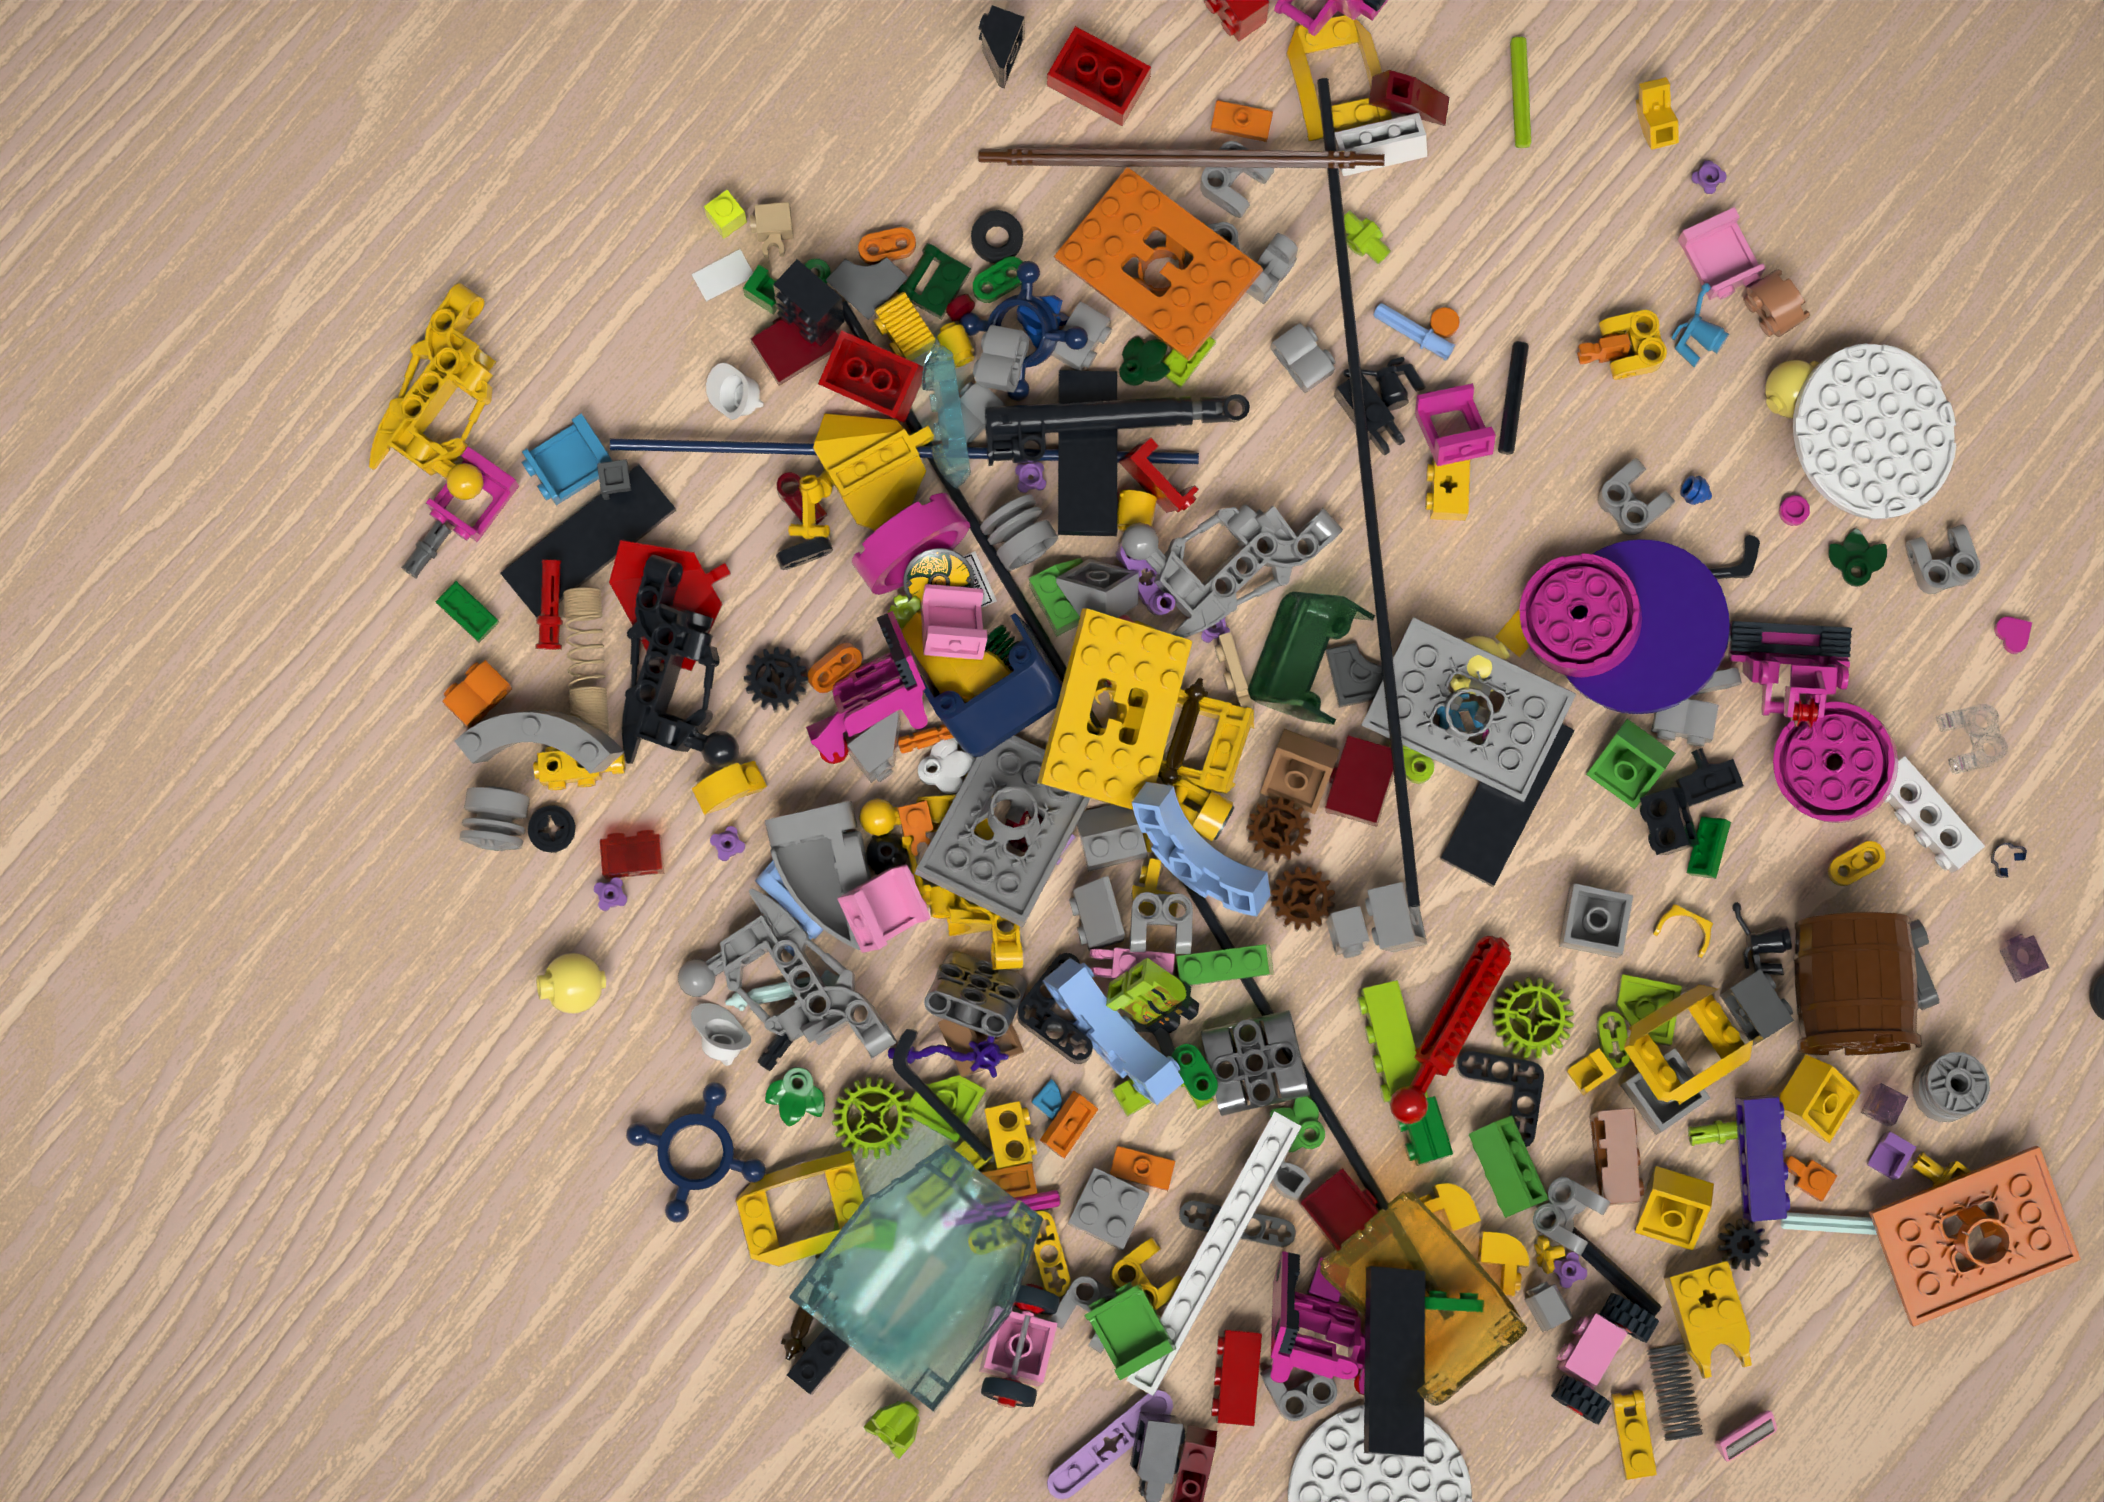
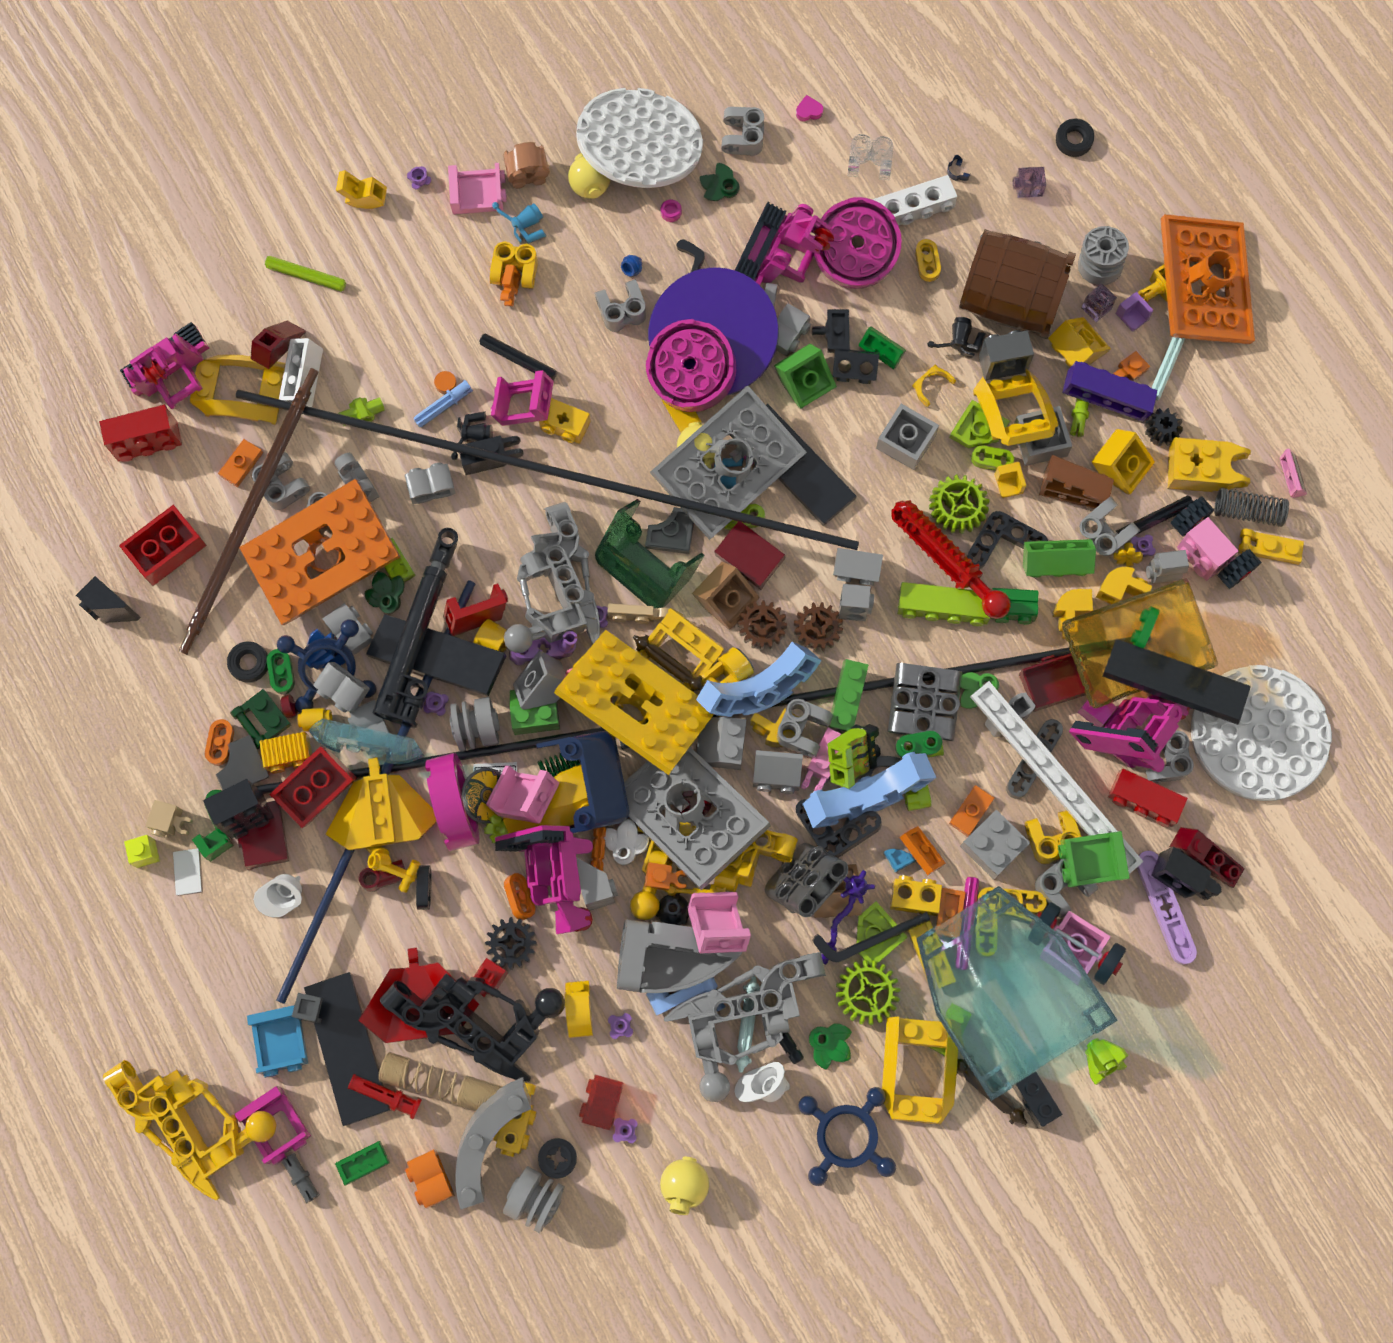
camera: 65 degrees left, 5 degrees down
(730, 671) = (492, 974): none -> red brick

